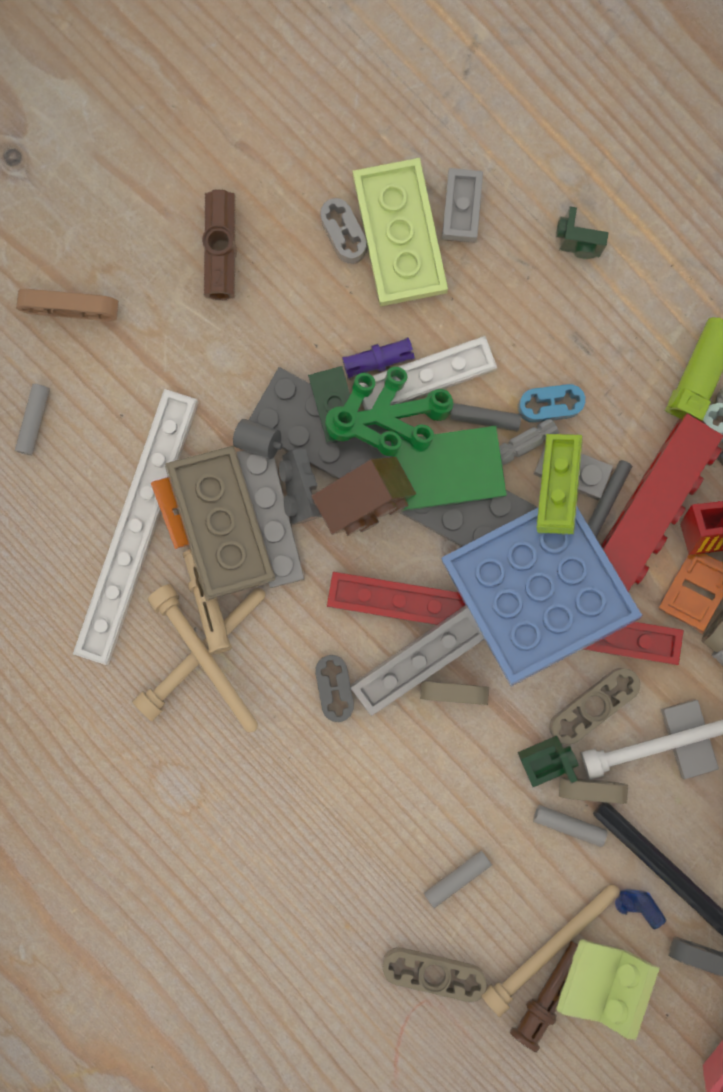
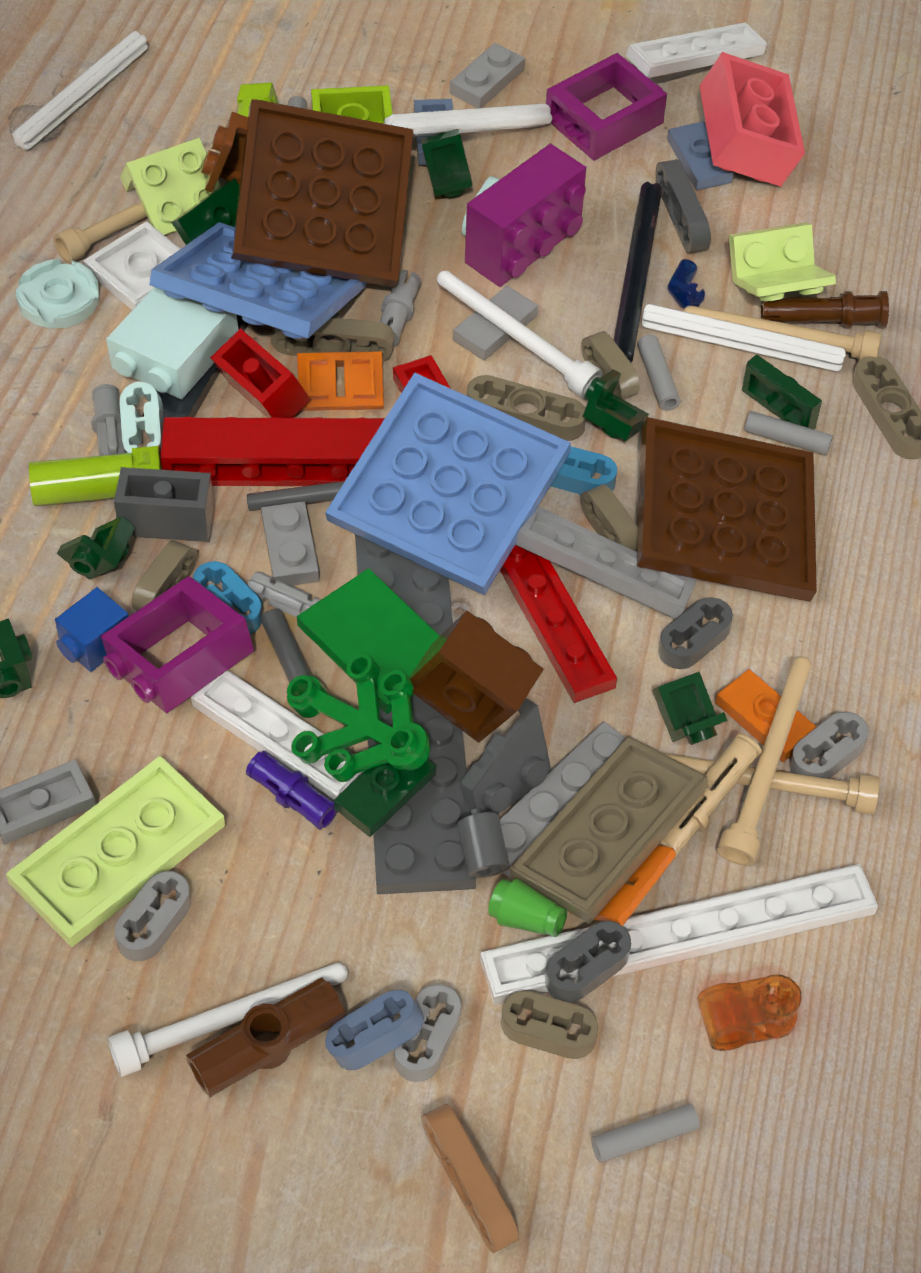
camera: 125 degrees left, 30 degrees down
(58, 520) = (748, 1012): none -> clear orange piece
(124, 403) = (549, 1024): none -> dark tan beam
(136, 450) = (582, 952): none -> dark grey beam
(175, 335) = (437, 1037): none -> light grey beam
(187, 710) = (822, 741): none -> light grey beam
(191, 307) = (374, 1030): none -> sand blue beam
(203, 439) = (526, 909): none -> bright green cone
(252, 686) = (753, 707): none -> orange plate
(262, 171) = (134, 1049): none -> white piece
(274, 636) = (688, 709): none -> dark green bracket
(411, 776) = (727, 510): none -> reddish brown plate
(490, 897) = (780, 393): none -> dark green plate
(508, 379) = (223, 646): none -> magenta window
(523, 709) = (579, 469): none -> dark azure beam
(559, 484) = (321, 522): lime tile -> none
(564, 913) = (743, 337): none -> white axle
(573, 300) = (82, 626): none -> blue brick
(589, 368) = (168, 569): none -> dark tan beam
(635, 342) = (101, 551): none -> dark green bracket
(647, 396) = (166, 503): none -> dark grey brick

